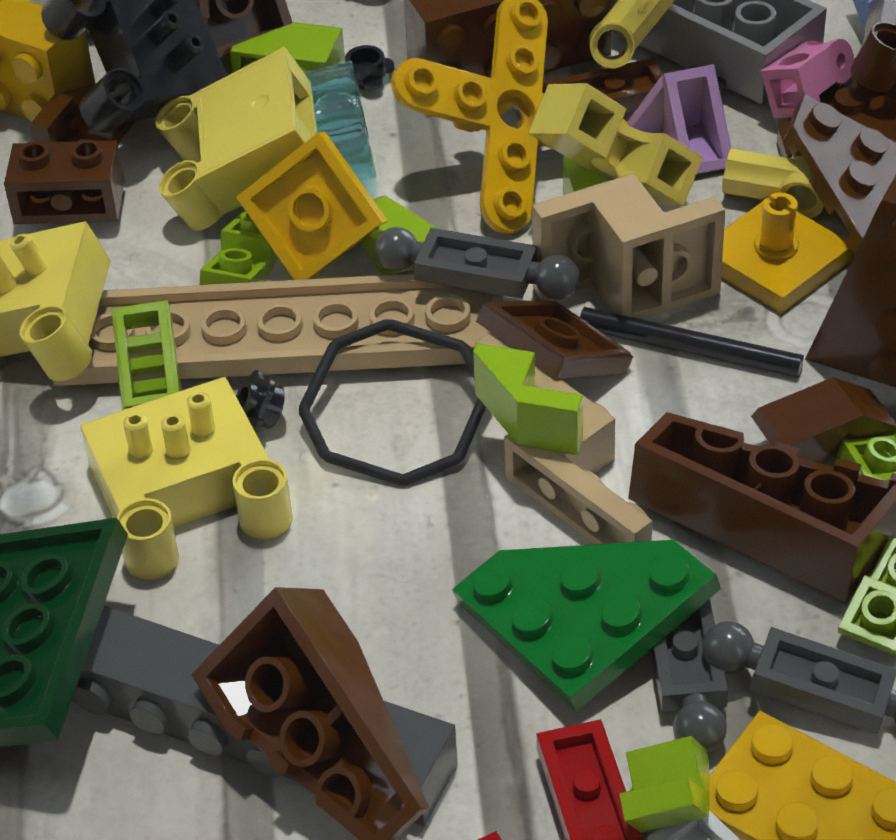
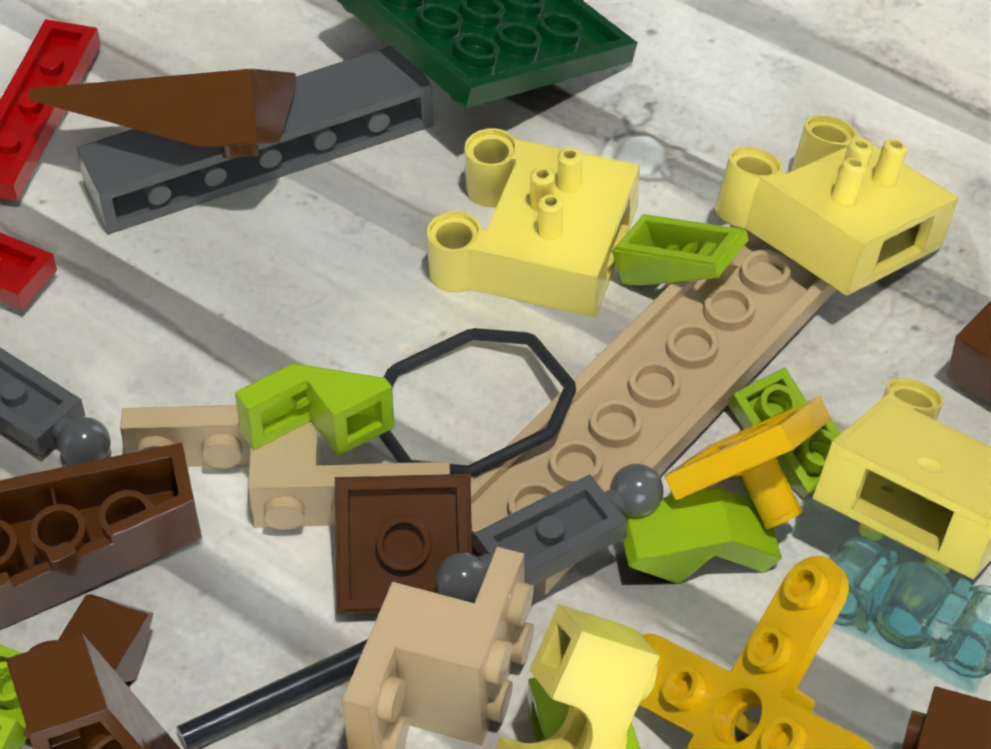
camera: 130 degrees right, 5 degrees up
(261, 400) = (569, 313): black plate -> none
(585, 609) = (114, 350): green plate -> none

